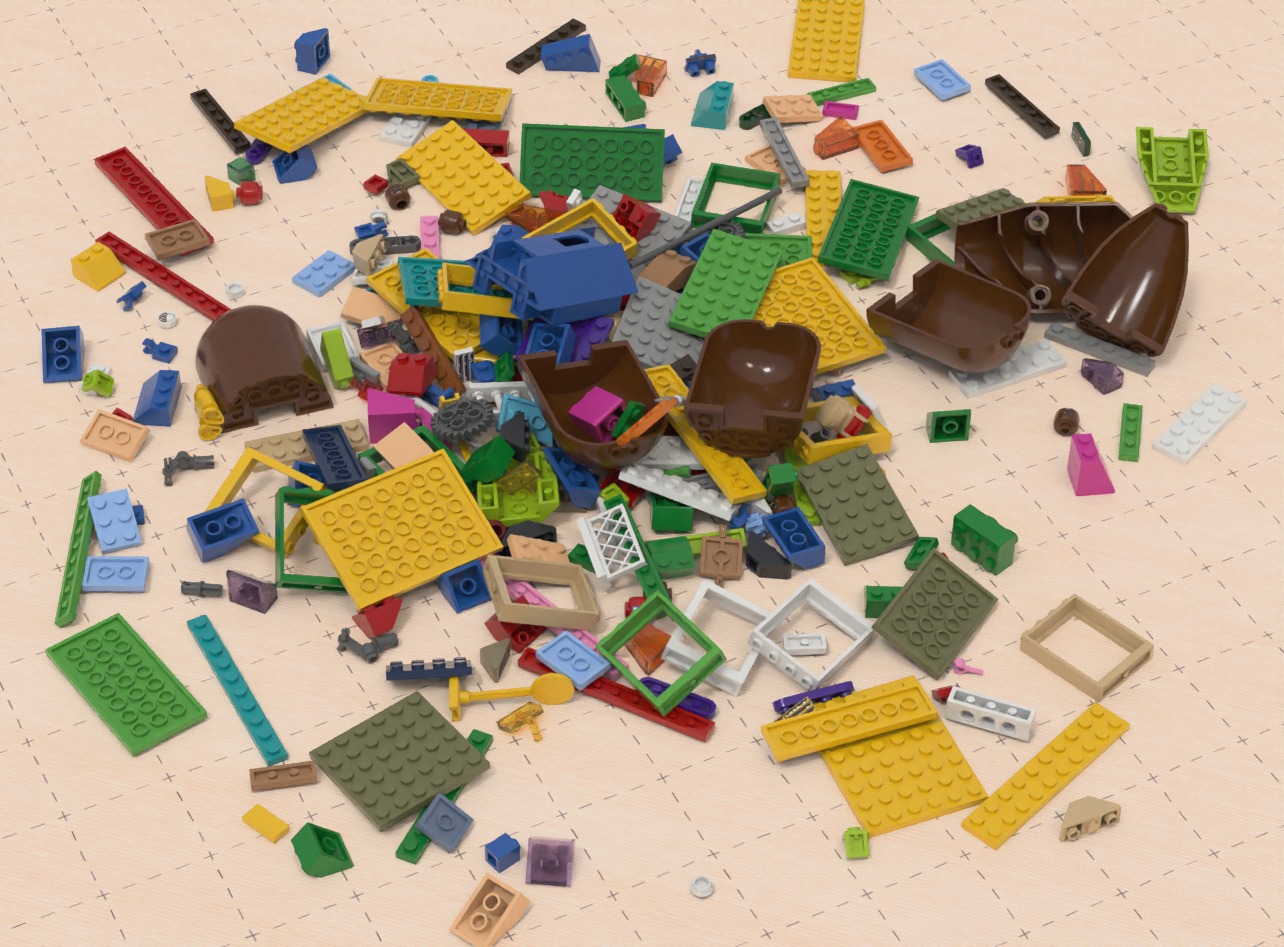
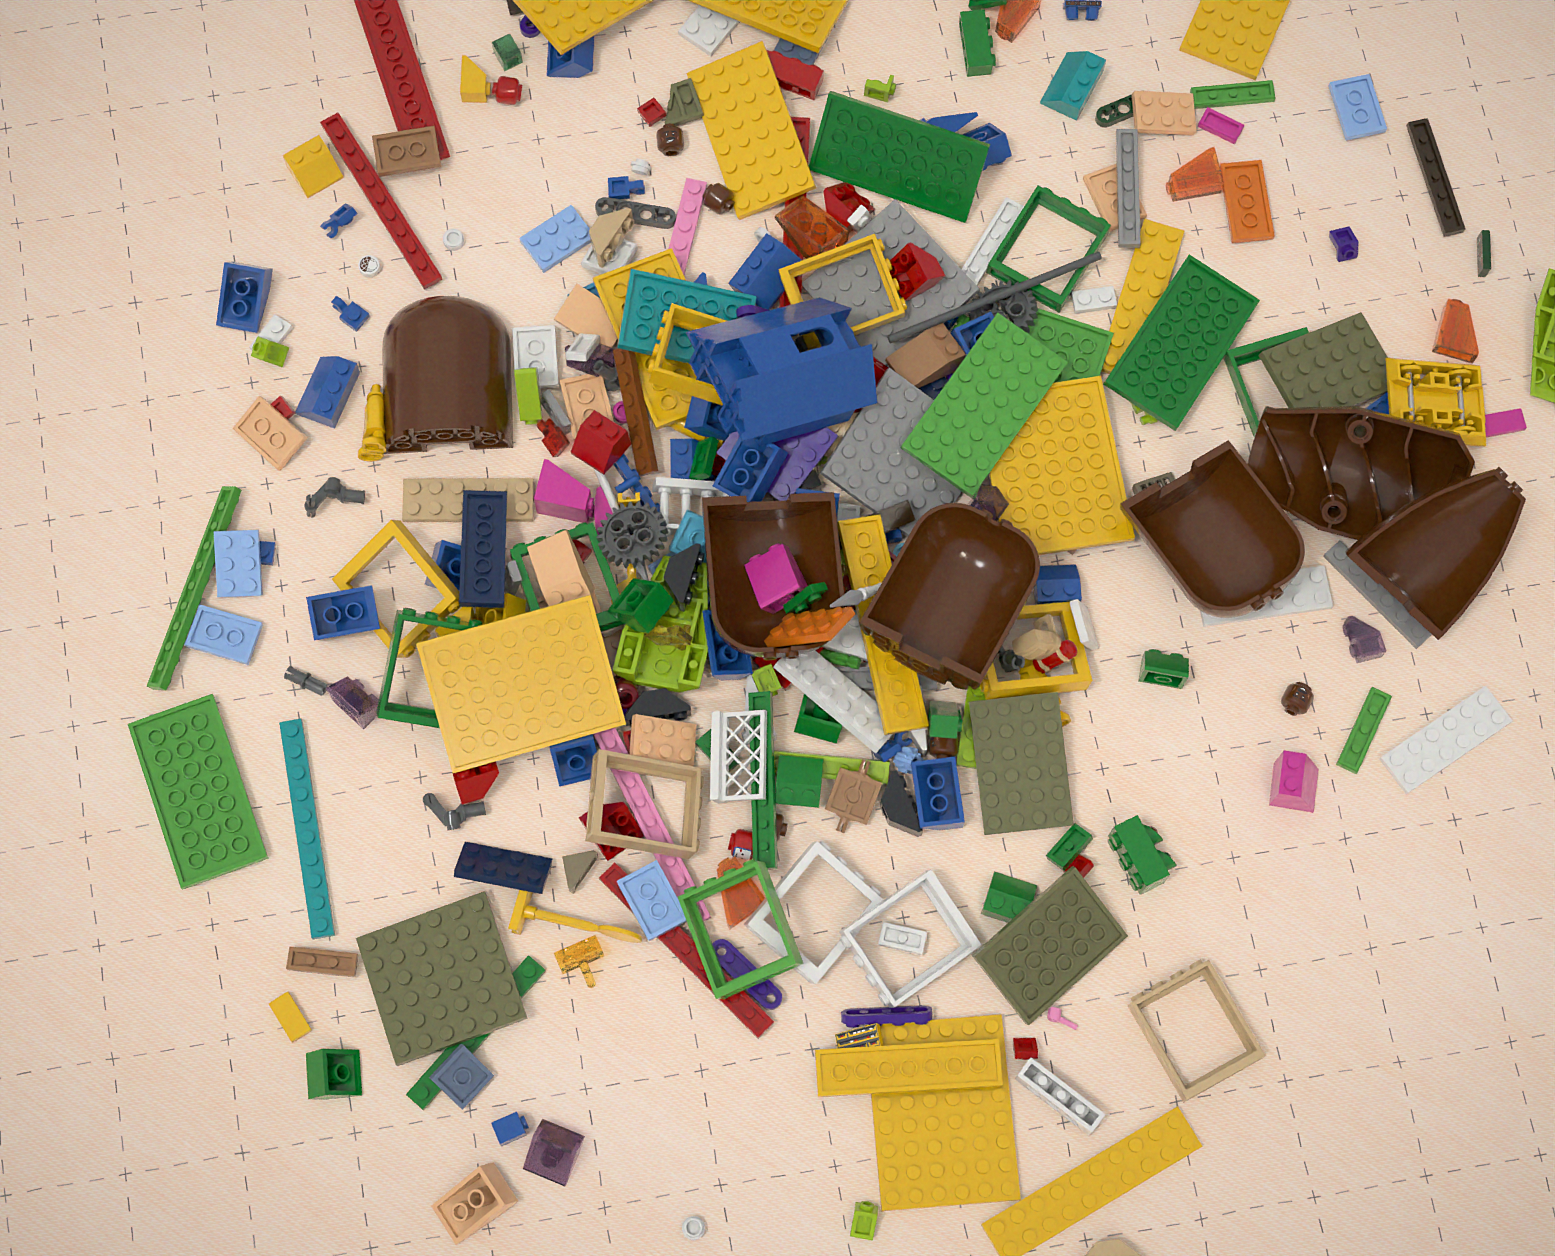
camera: 15 degrees right, 30 degrees up
(462, 362) = (662, 436): tile -> none

